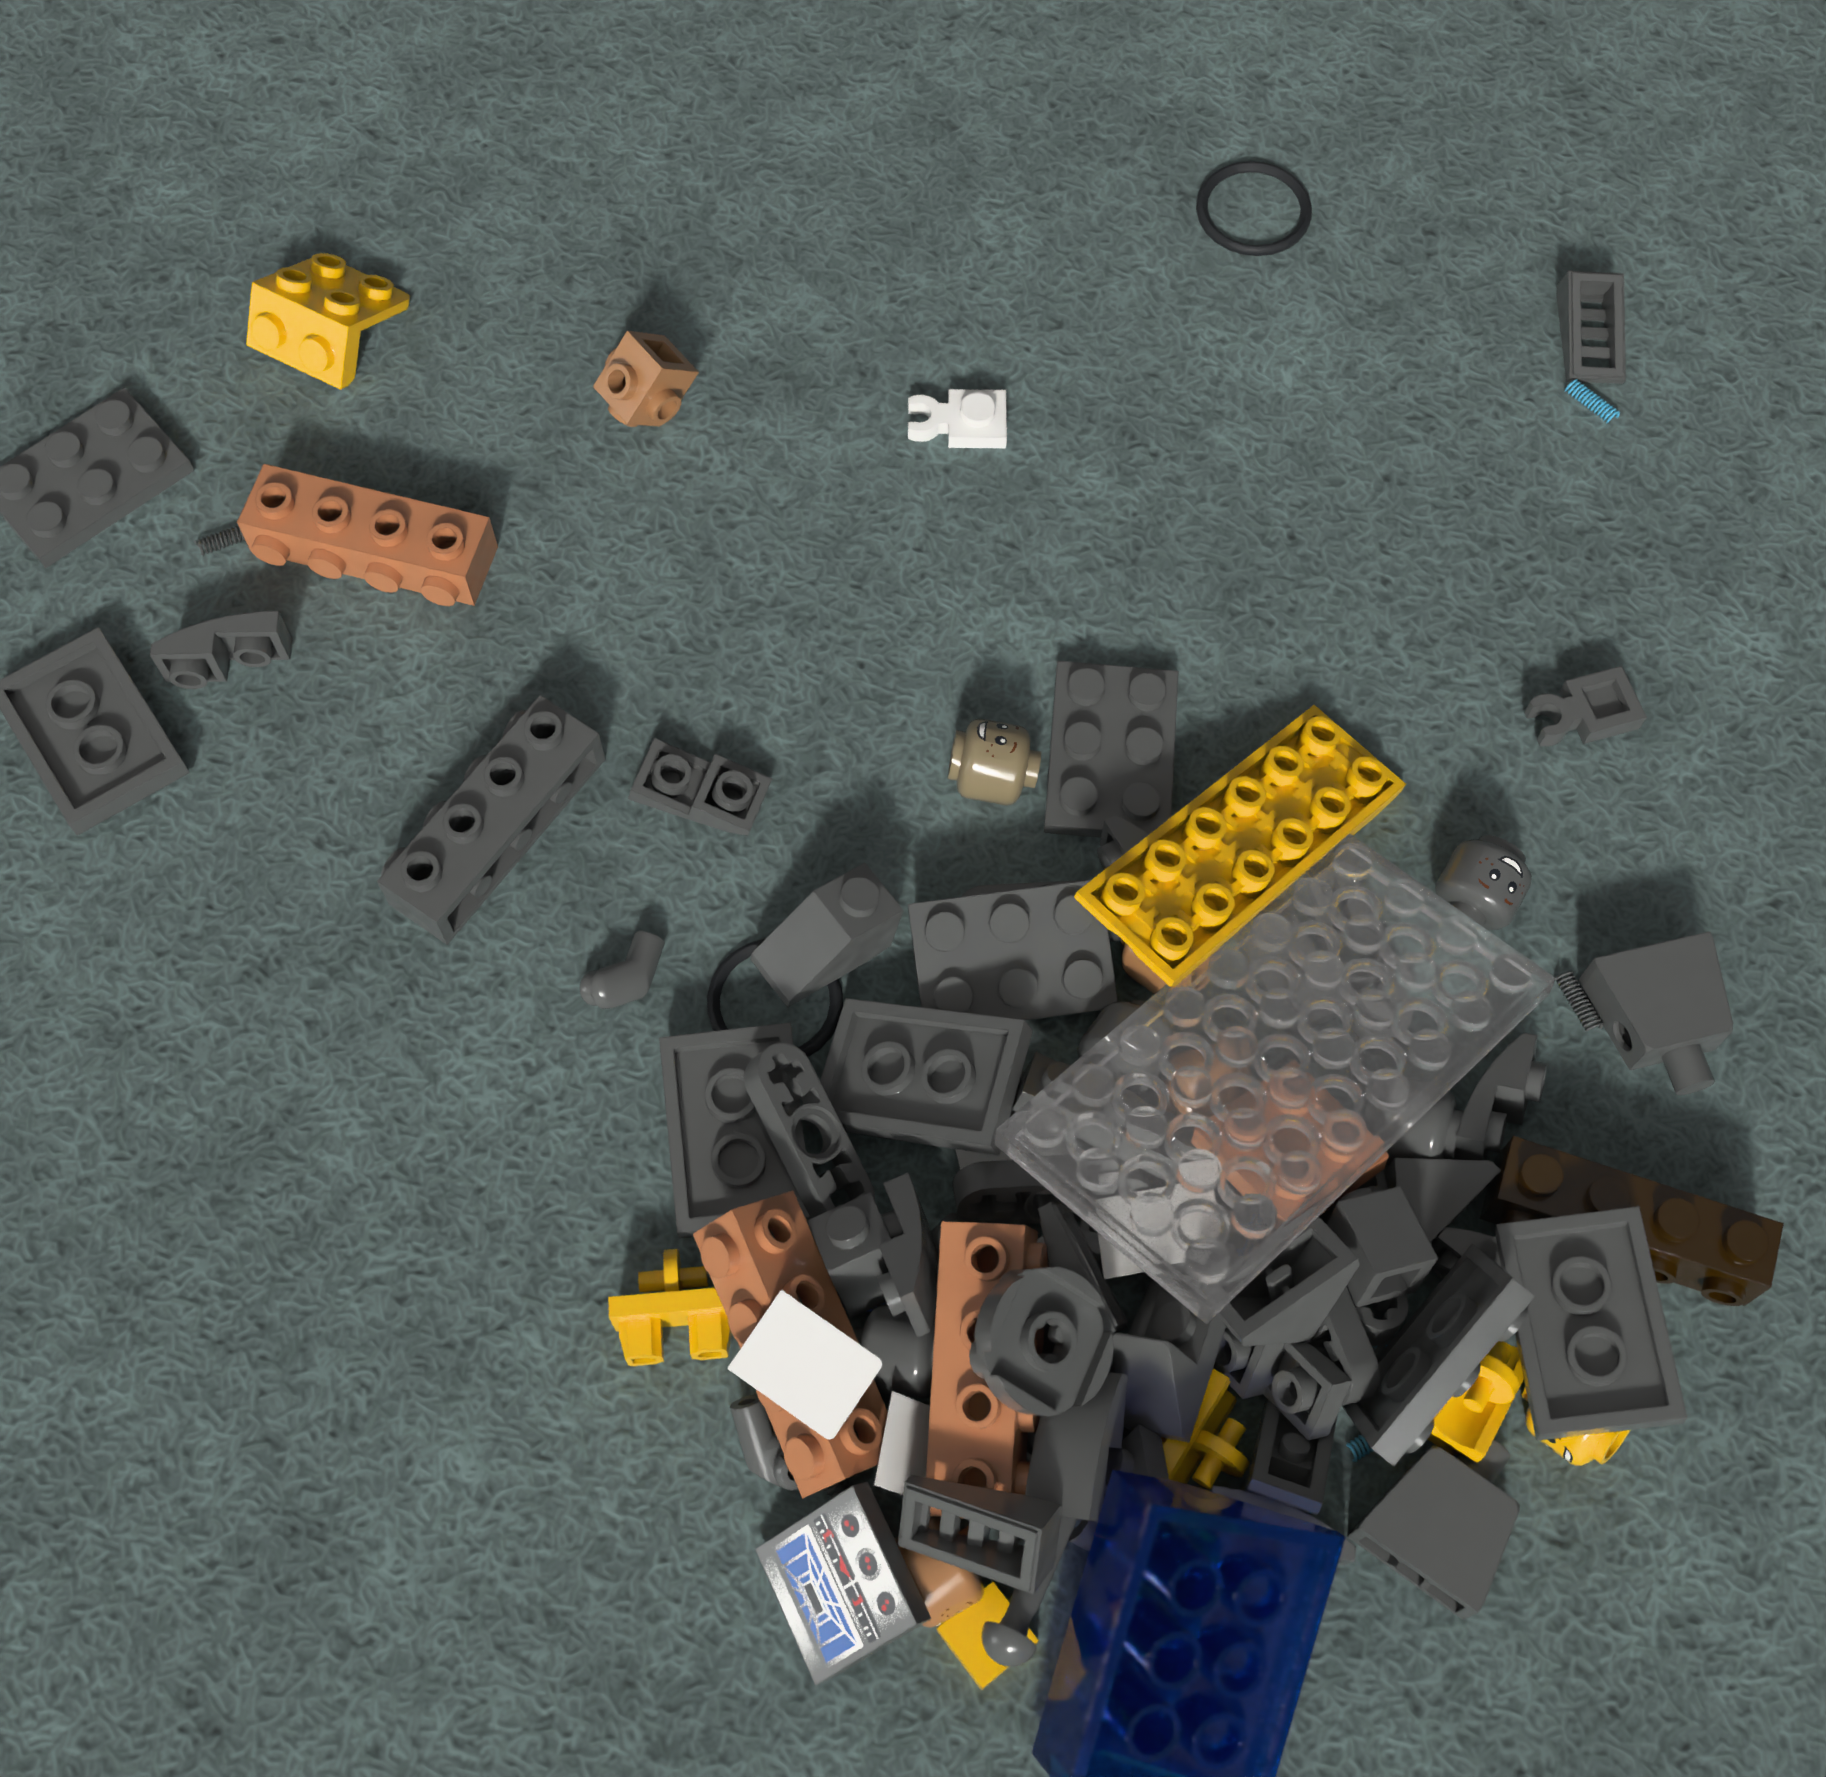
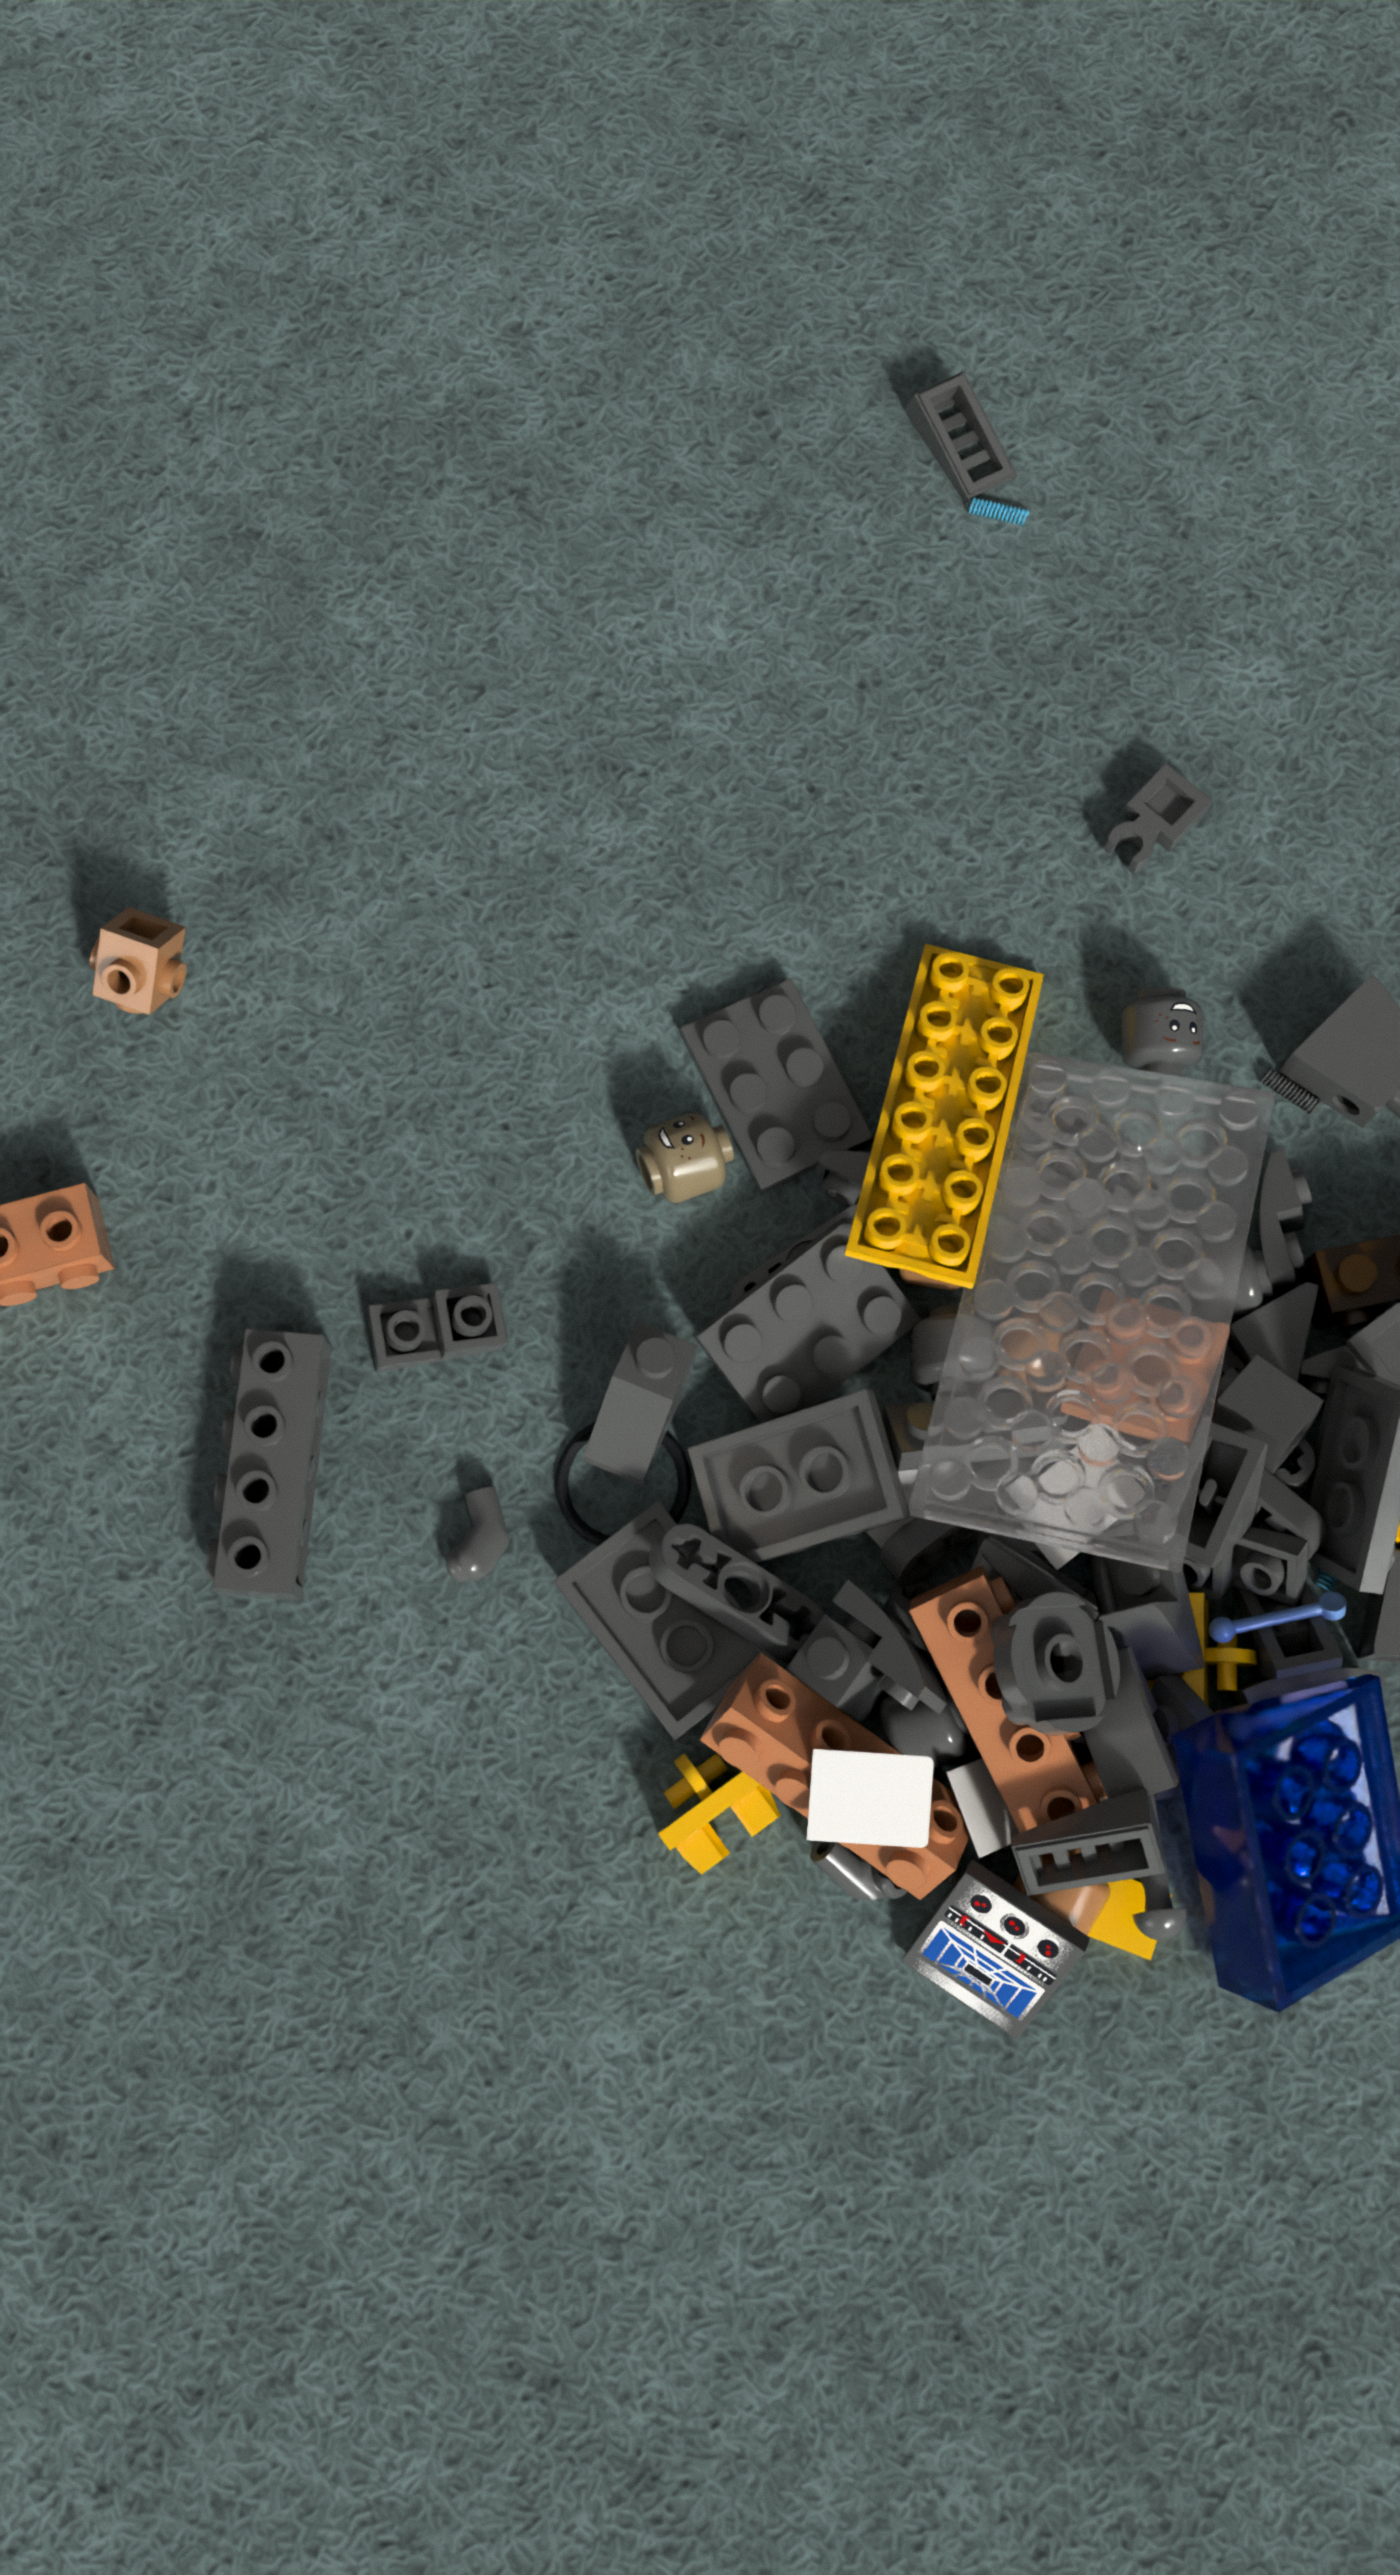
camera: 30 degrees left, 10 degrees up
(968, 418) = (457, 829): white plate -> none
(1255, 167) = (581, 425): black tyre -> none
(1340, 1457) = (1330, 1606): none -> medium blue hinge

